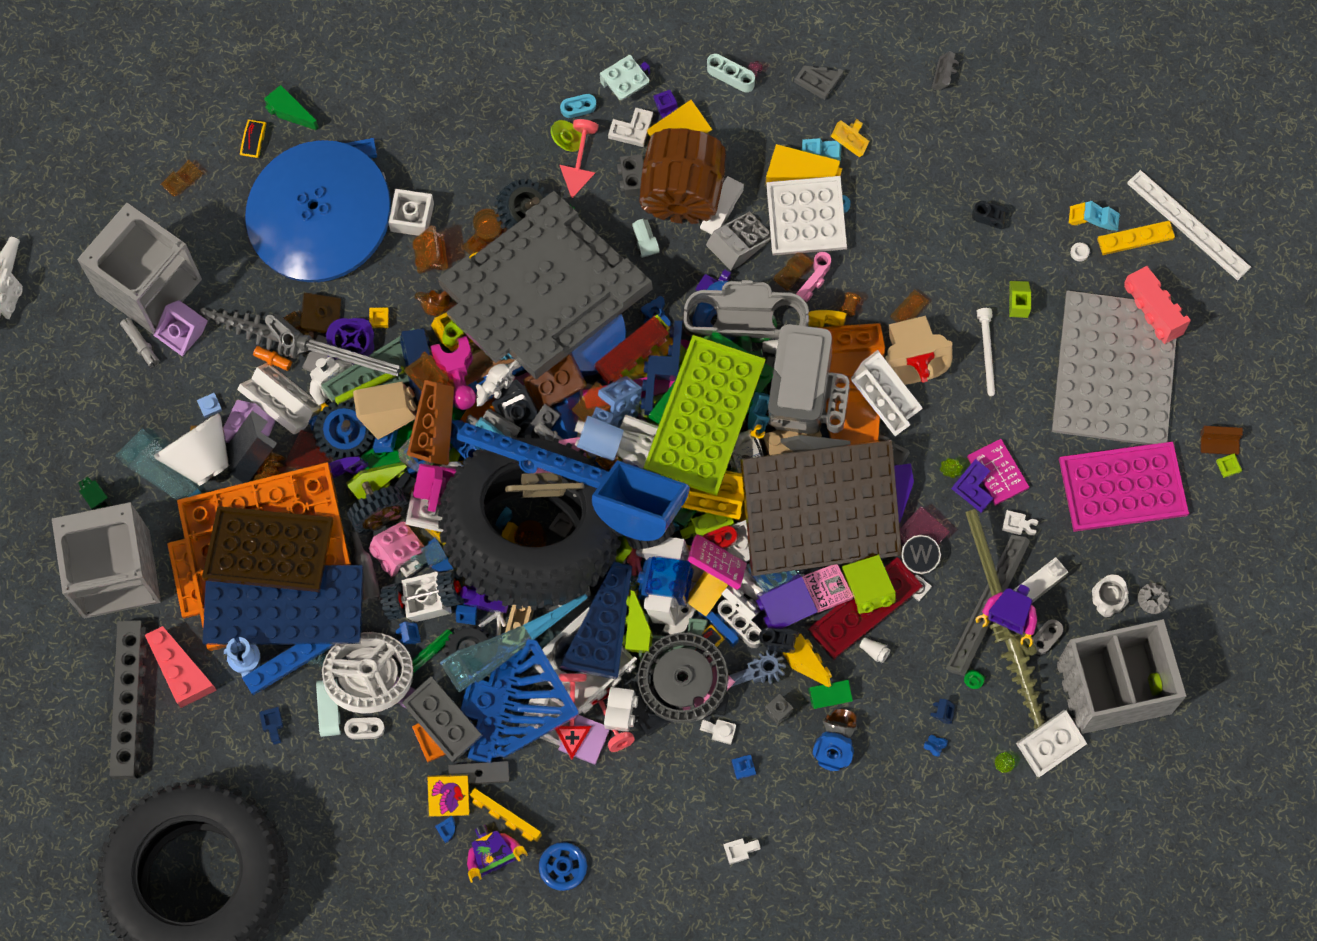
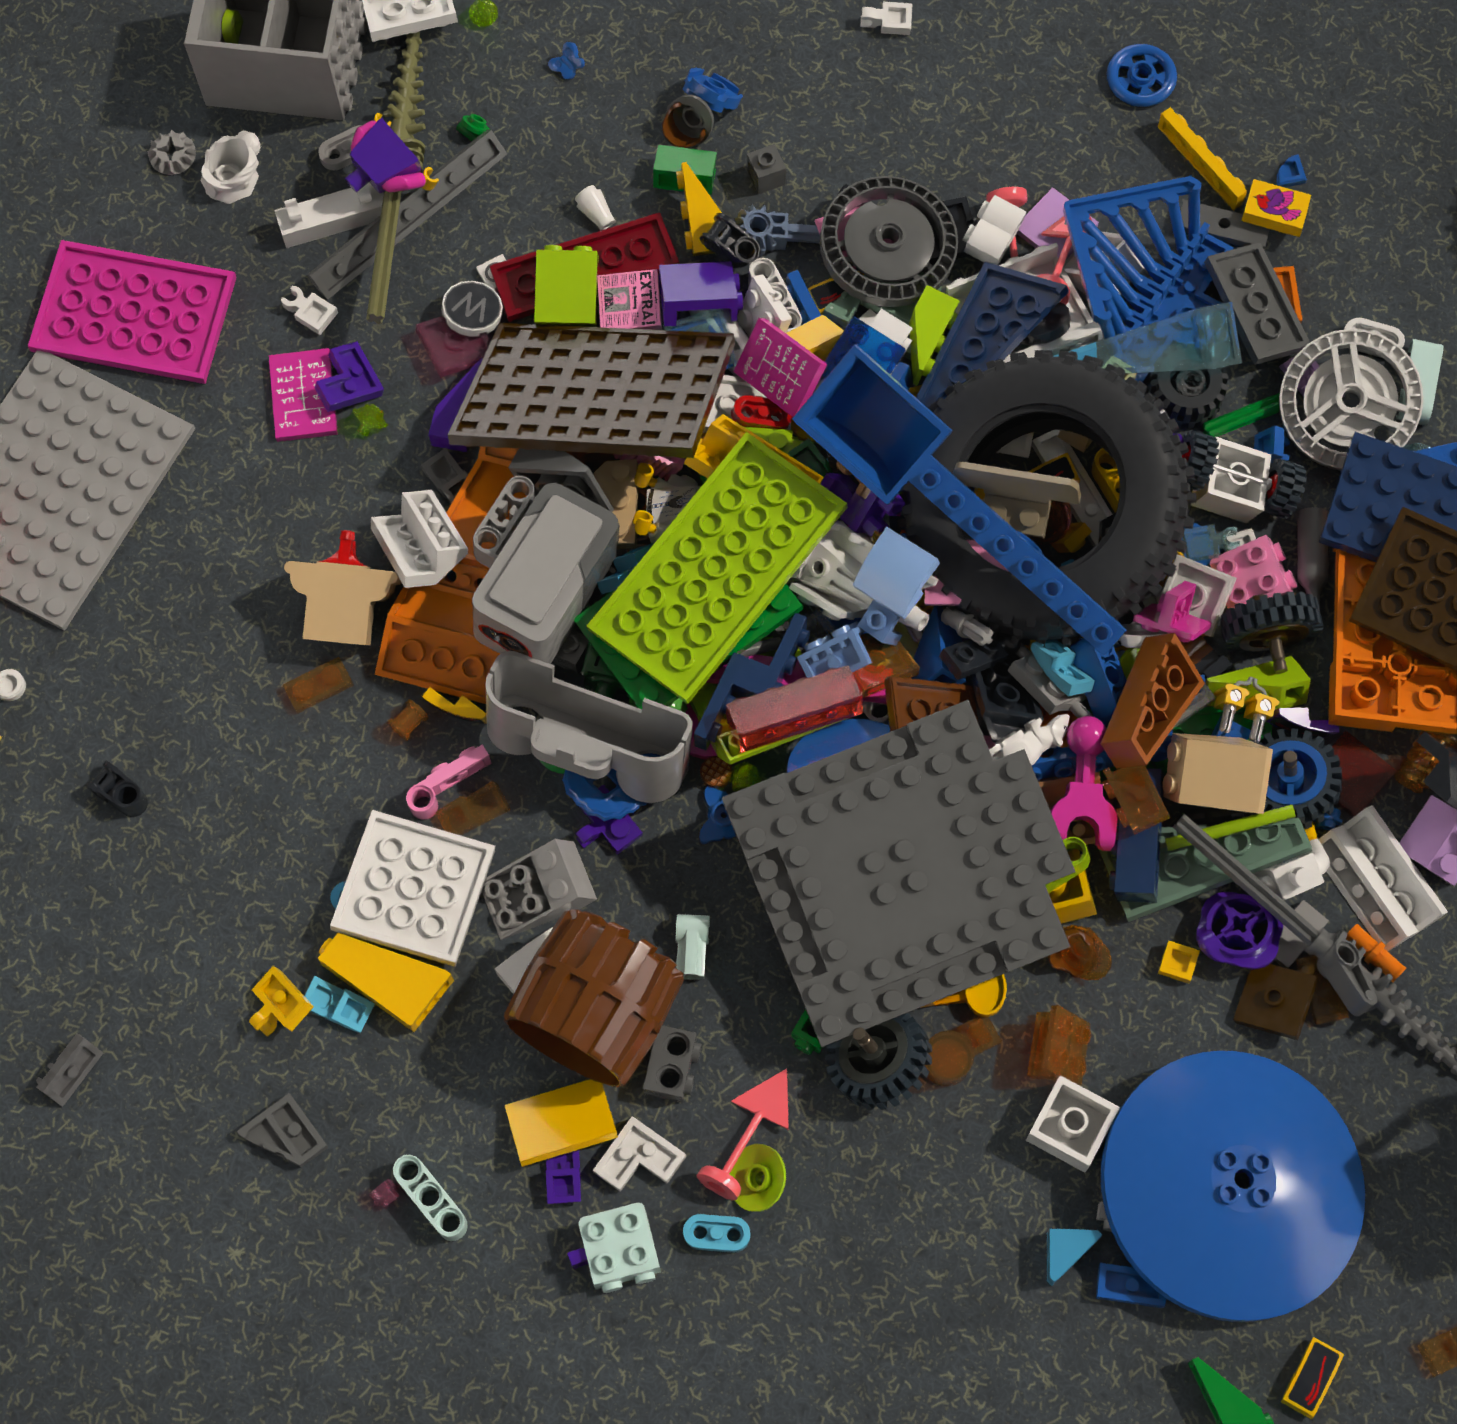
camera: 160 degrees left, 0 degrees up
(388, 455) = (1258, 707): none -> piece
(394, 156) = (1066, 1248): none -> dark azure slope
(491, 852) = (1236, 117): torso -> none
(721, 731) = (854, 170): white plate -> none
(743, 767) = (844, 120): blue tile -> none
(944, 712) = (535, 96): dark blue tile -> none
(984, 316) = (209, 627): white piece -> none
(1019, 299) = (140, 634): lime slope -> none

